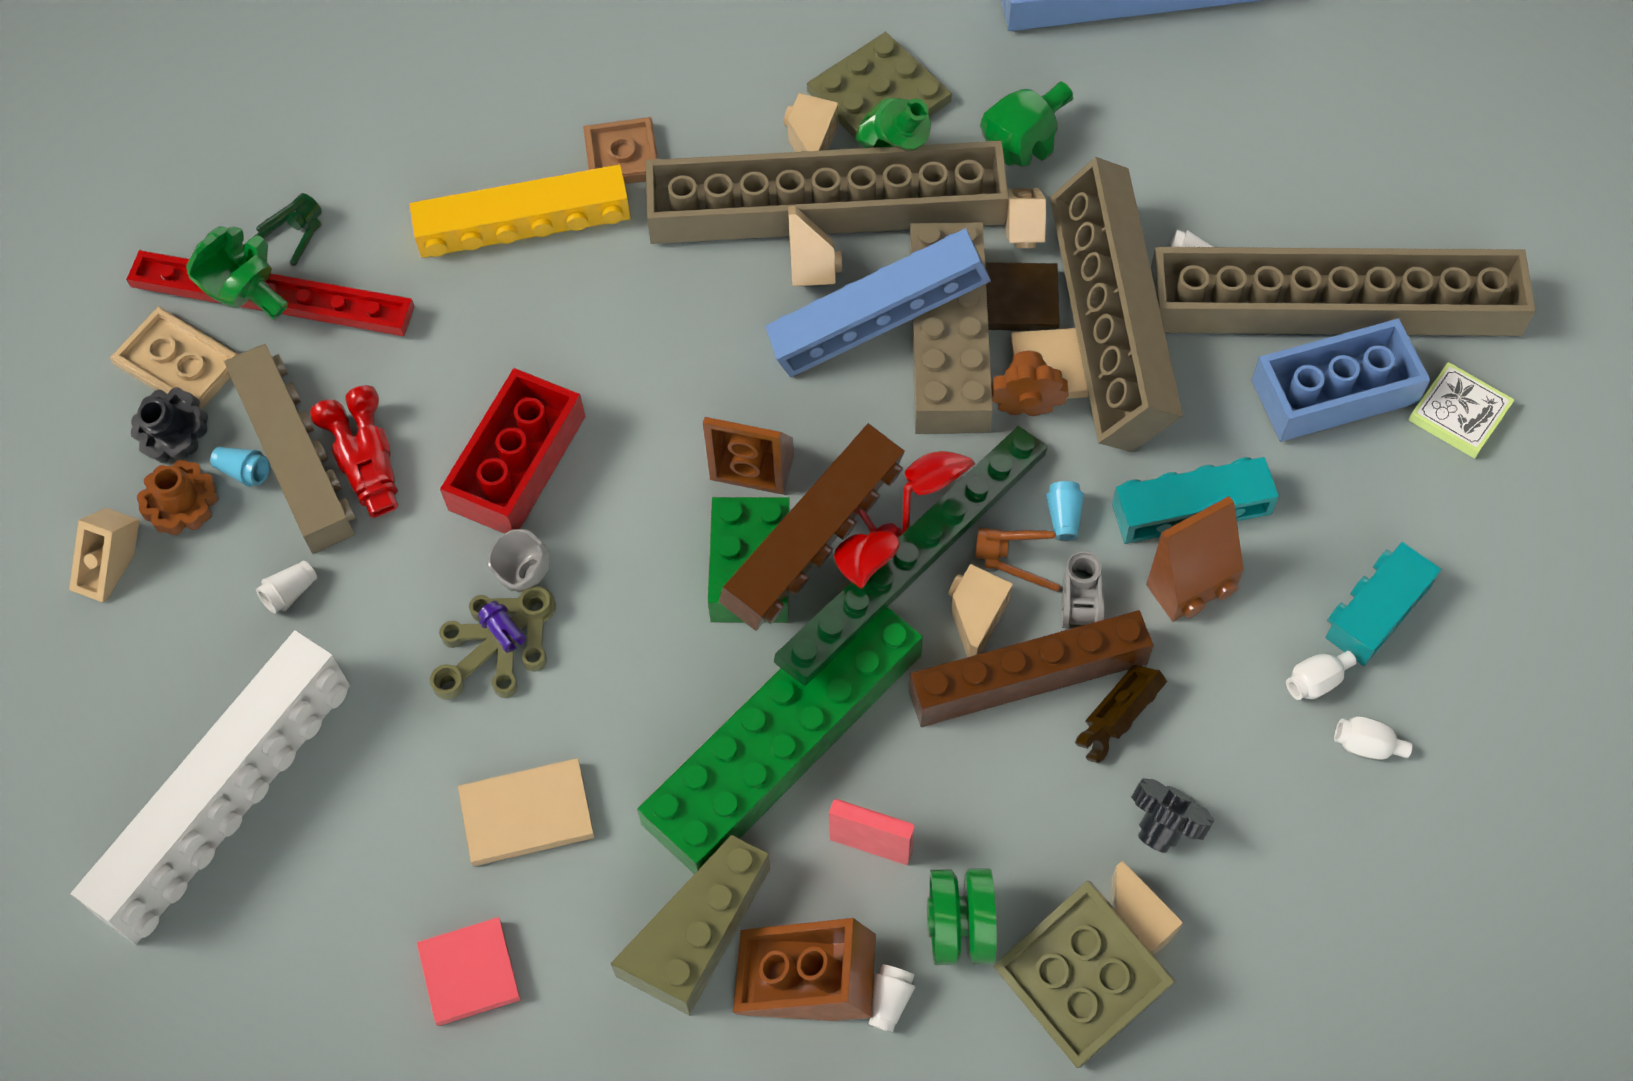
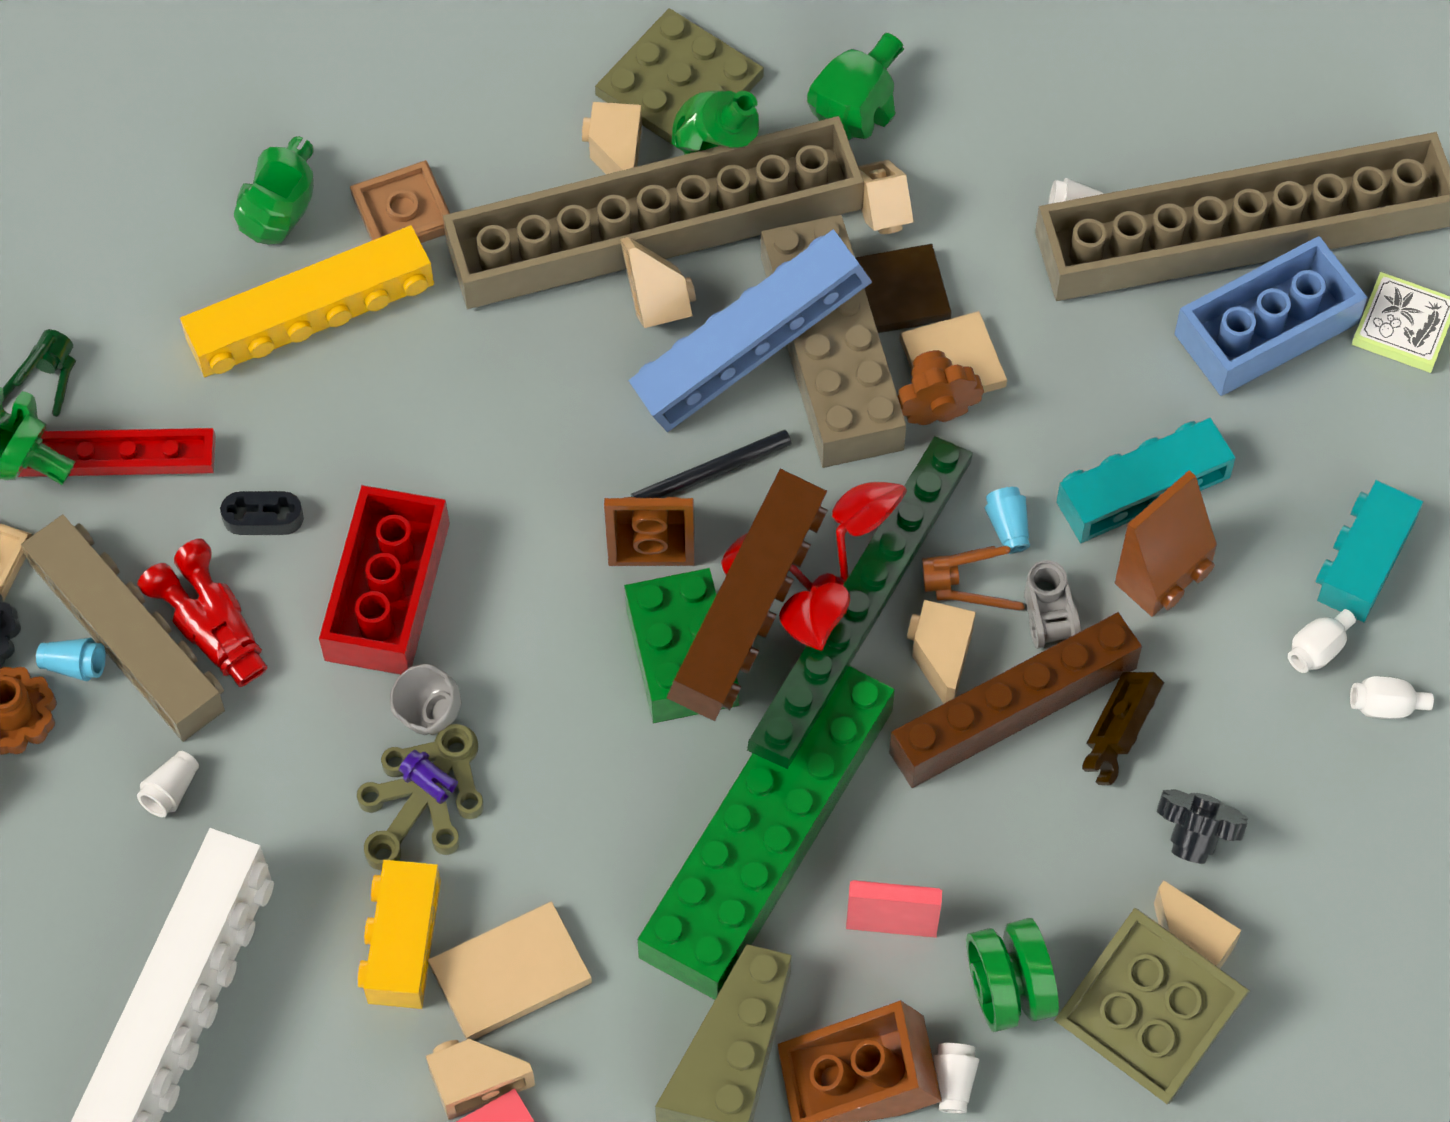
camera: 15 degrees left, 0 degrees up
(433, 376) = (262, 513): none -> black beam
(440, 758) = (400, 934): none -> yellow brick
(465, 897) = (474, 1075): none -> tan slope
(522, 122) = (278, 193): none -> green piece
(825, 414) = (716, 466): none -> black bar
(1115, 306) = (1009, 280): dark tan brick -> none

